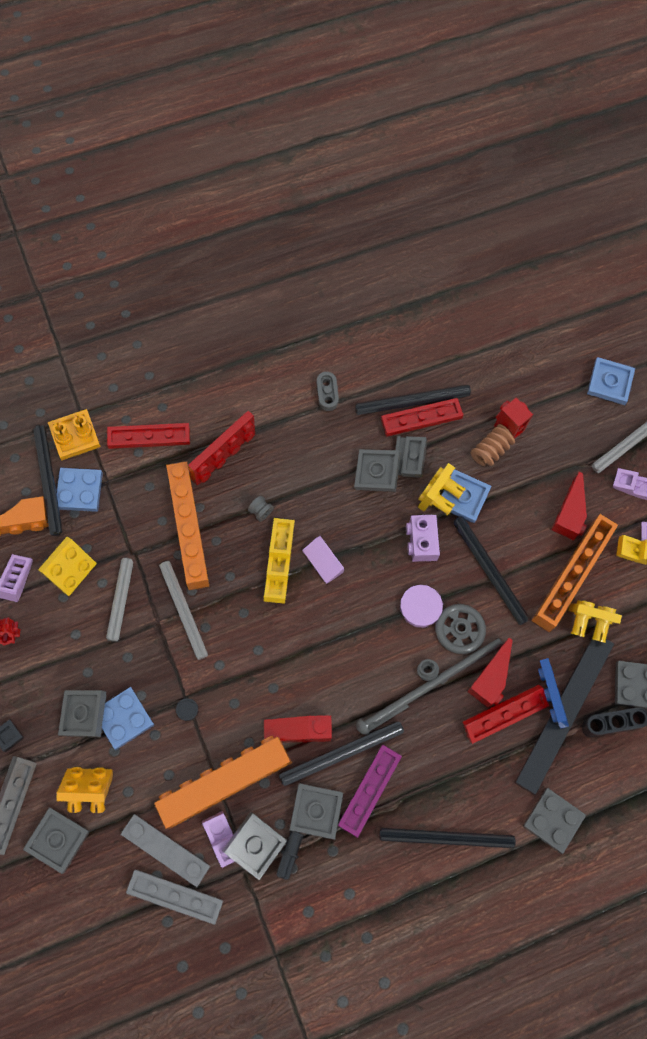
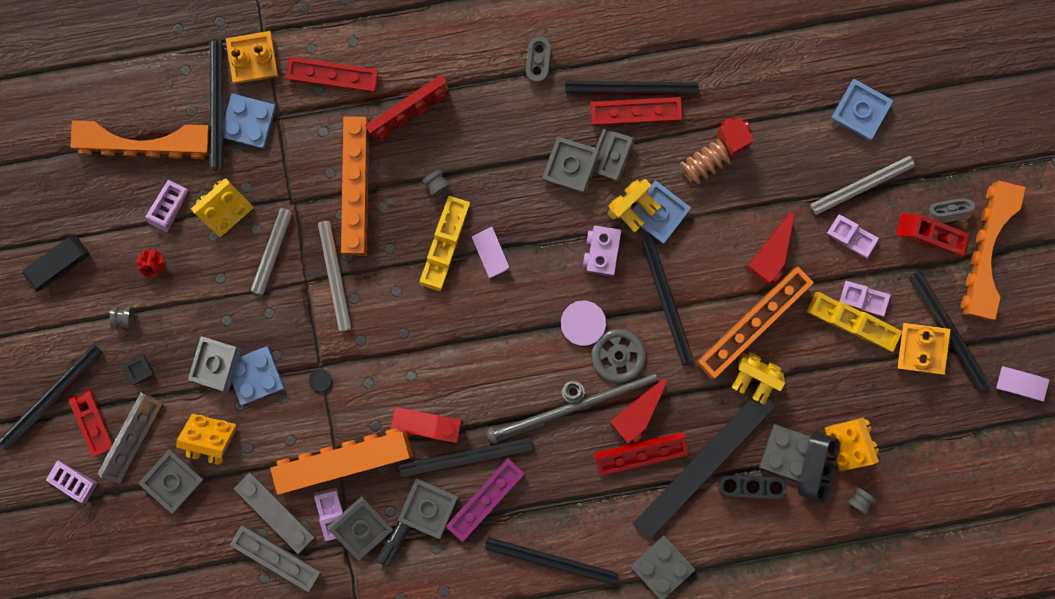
camera: 20 degrees right, 15 degrees up
(552, 693) = (694, 444): blue plate -> none

